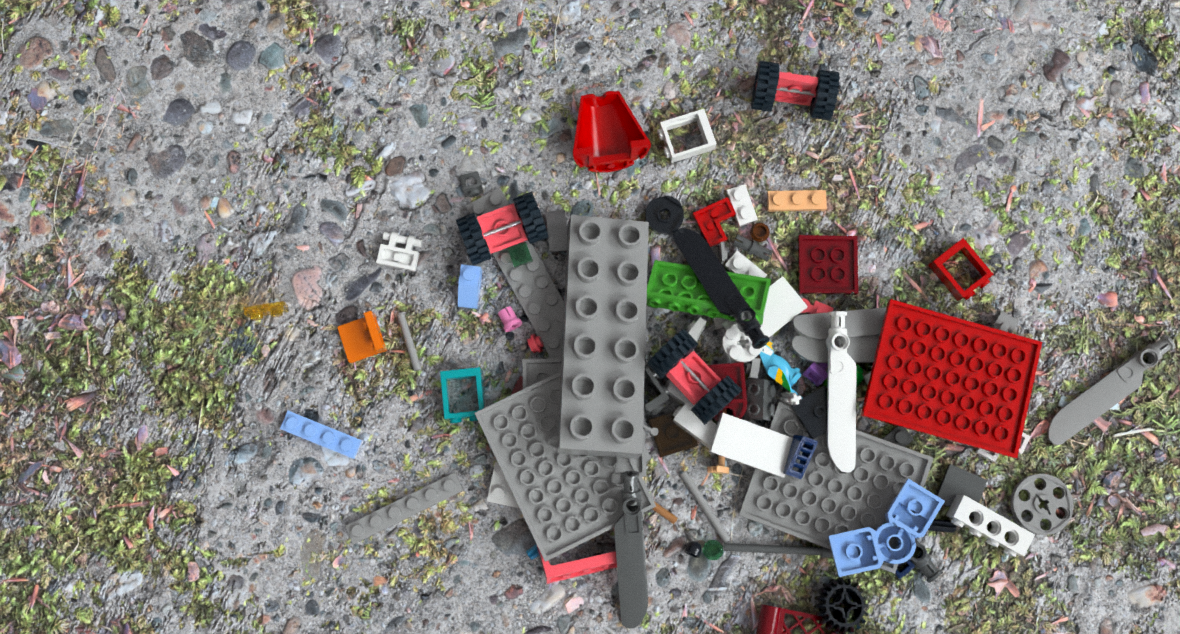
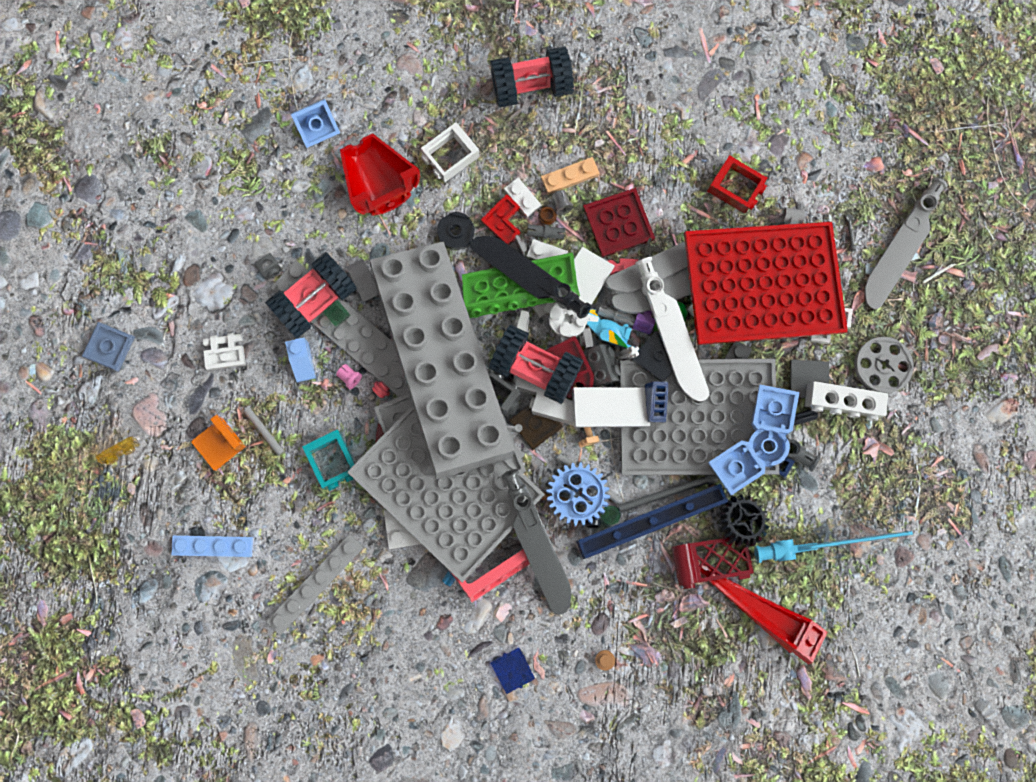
camera: 25 degrees left, 0 degrees up
(292, 206) = (108, 346): none -> sand blue plate
(567, 61) = (315, 123): none -> light blue slope
(673, 528) = (588, 480): none -> light blue gear
(751, 571) = (651, 521): none -> dark blue tile
(778, 224) = (561, 202): none -> flat silver bush
(787, 352) = (615, 315): none -> light grey axle
(1061, 343) = (849, 218): none -> dark grey hinge

